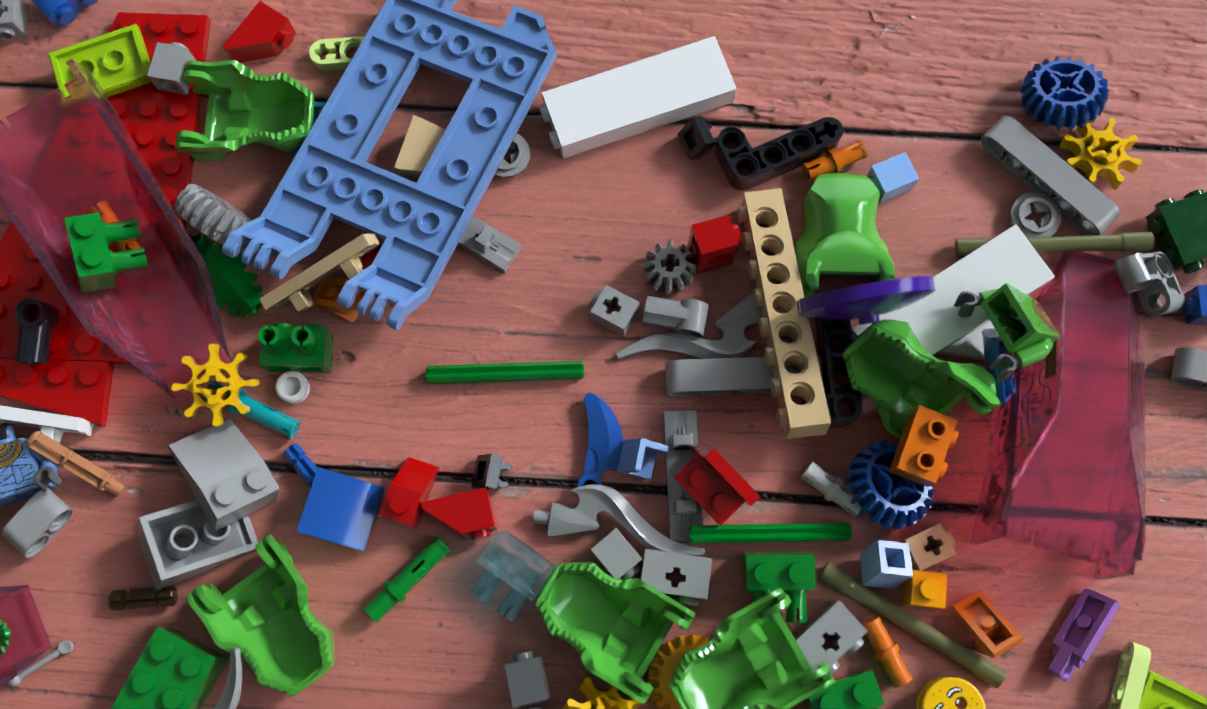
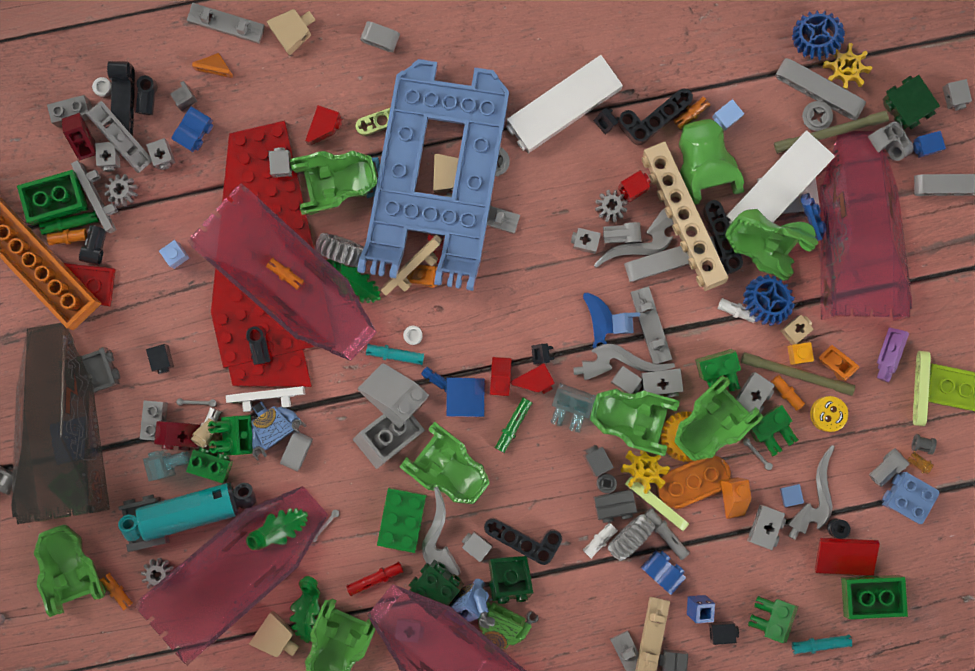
camera: 15 degrees left, 10 degrees up
(74, 463) = (306, 412): nougat piece -> none
(89, 246) = (280, 290): green brick -> none
(114, 60) = (235, 168): lime tile -> none
(143, 598) = (369, 475): dark brown axle -> none
(215, 370) = (382, 345): yellow gear -> none
(296, 348) = (409, 312): green brick -> none
(504, 372) = (533, 293): green axle -> none
(715, 483) = (671, 327): red bracket -> none
(769, 533) = (708, 345): green axle -> none
(866, 300) = (731, 204): dark purple dish -> none
(886, 564) = (776, 345): light blue brick -> none
(924, 446) = (782, 275): orange brick -> none
(1018, 322) = (819, 191): bright green torso -> none

